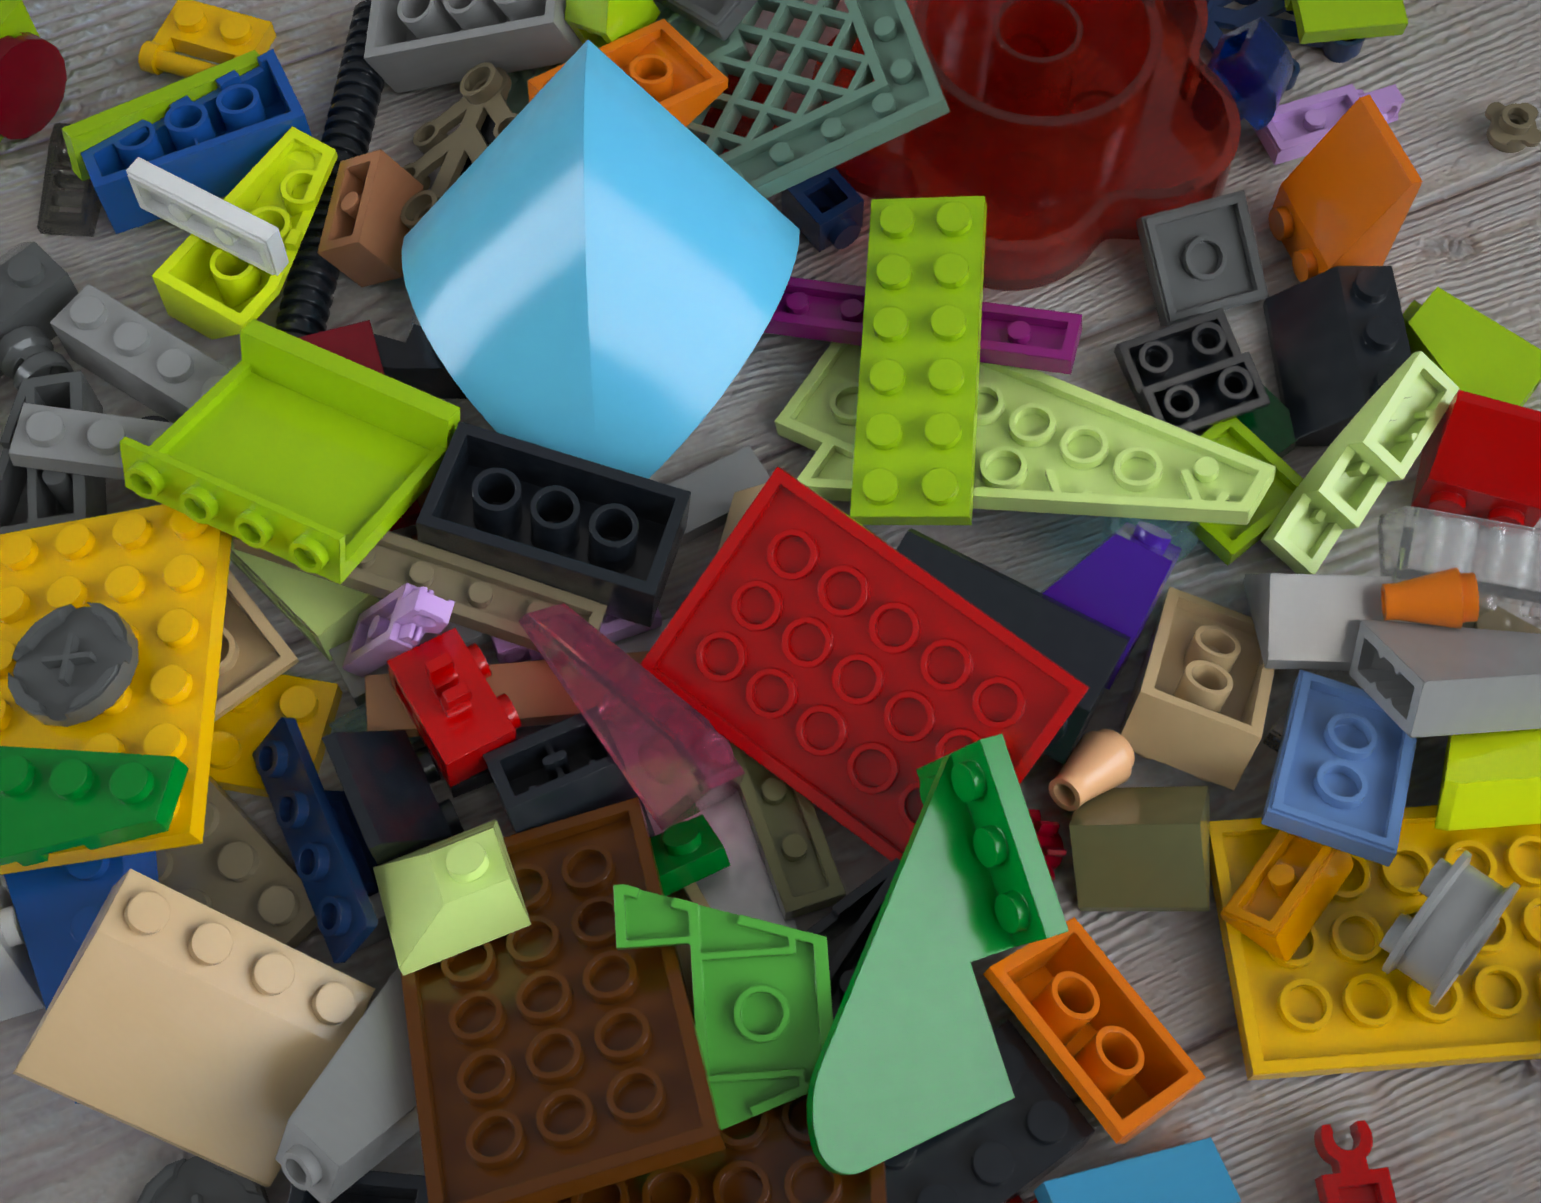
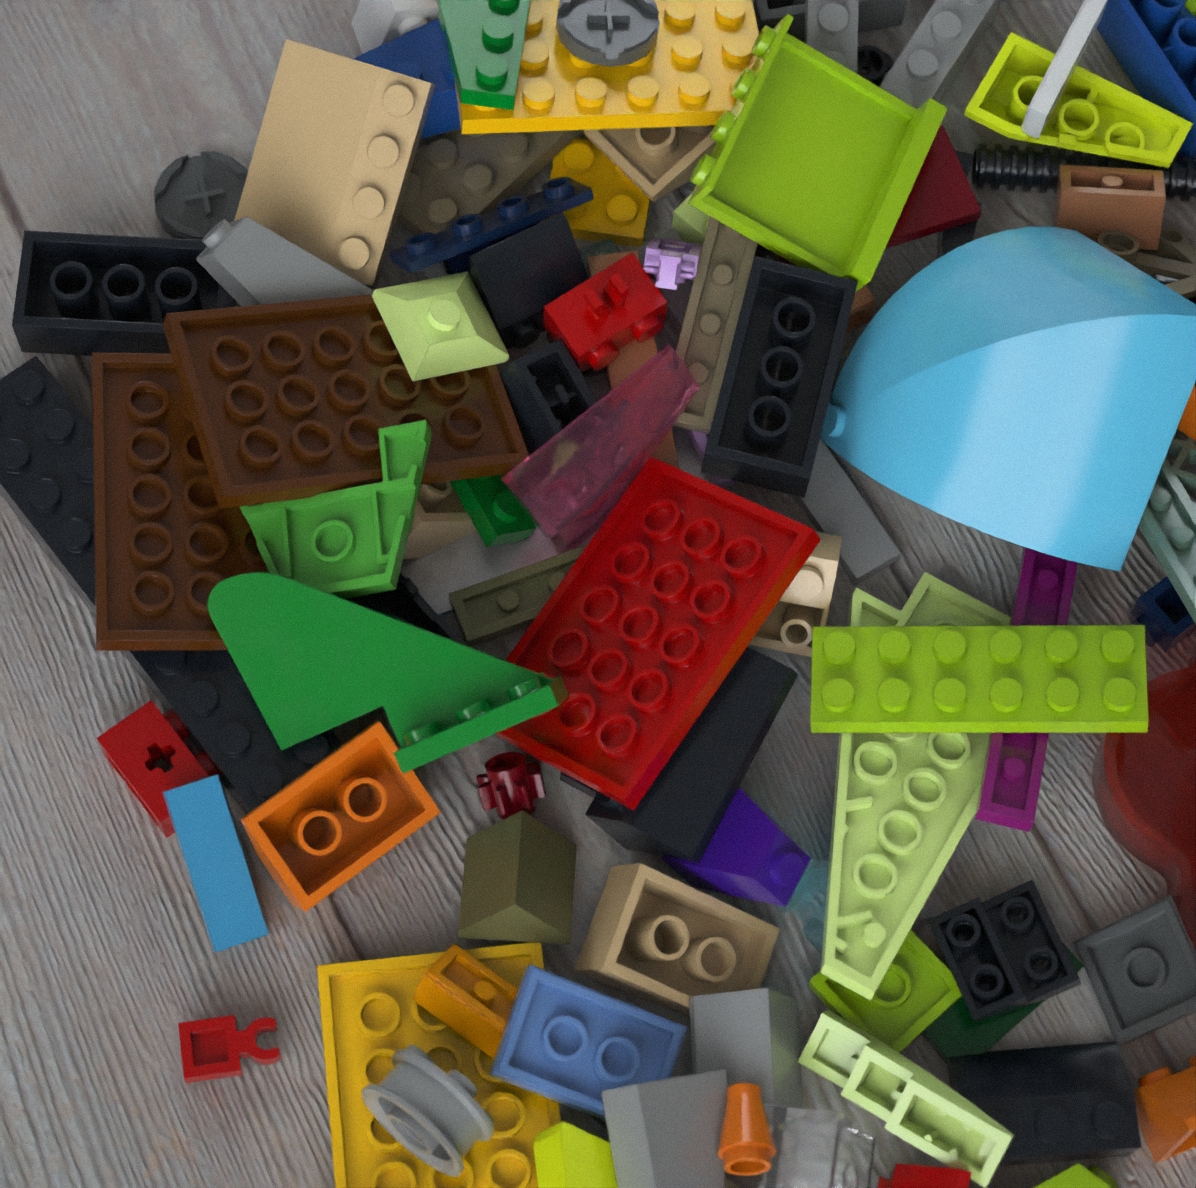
camera: 85 degrees right, 5 degrees up
(1094, 767) = (584, 842): light nougat cone -> none

